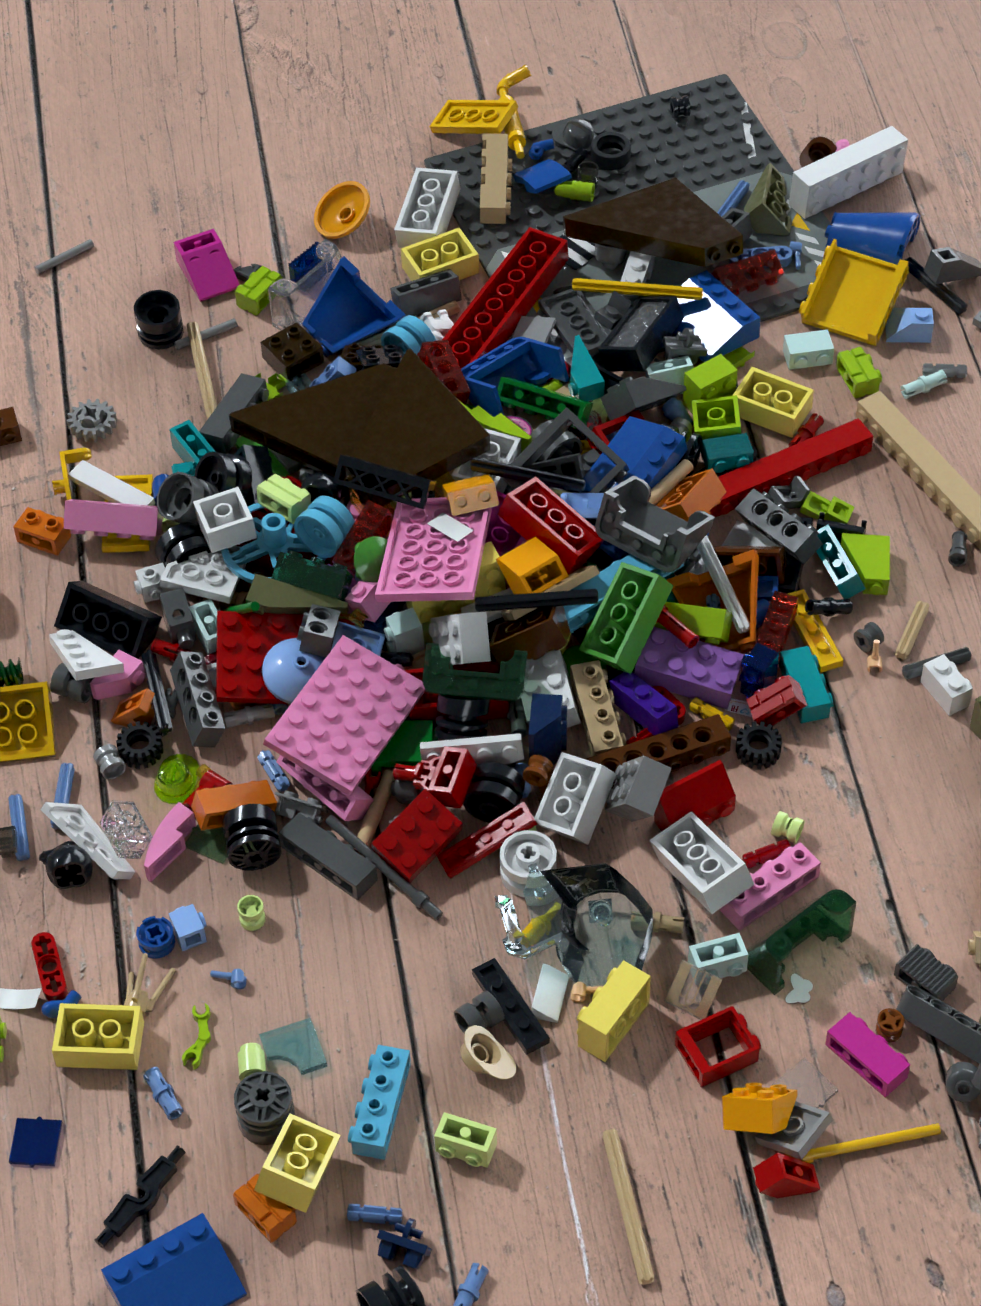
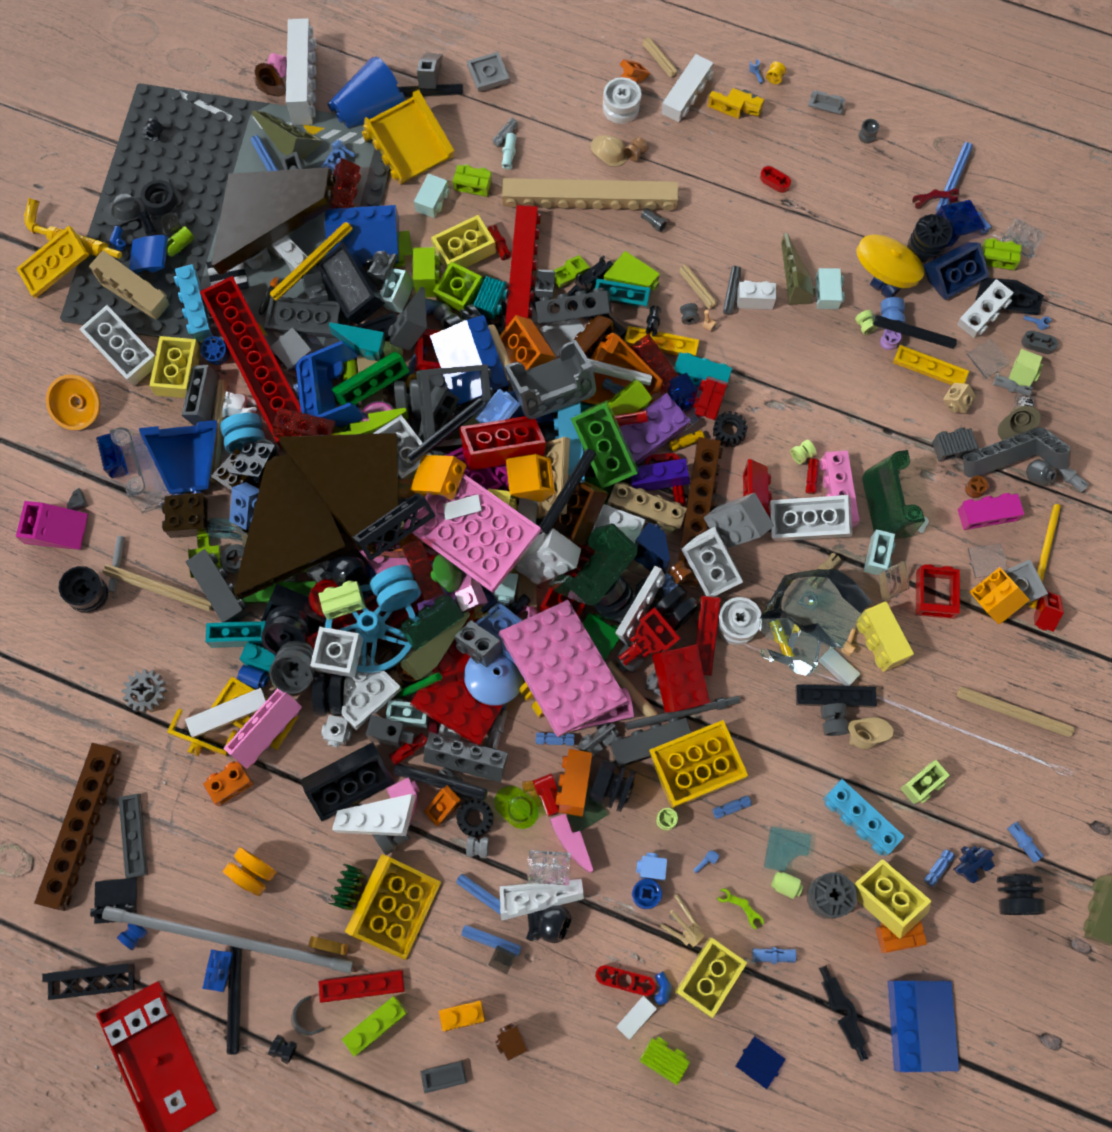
camera: 60 degrees left, 20 degrees up
(254, 292) = (104, 503): lime brick -> none
(308, 970) = (731, 807): none -> medium blue axle
(329, 905) = (698, 764): none -> yellow slope
(481, 275) = (214, 350): none -> blue wheel
(536, 215) = (195, 307): none -> medium azure brick
(910, 325) = (455, 122): light blue slope -> none

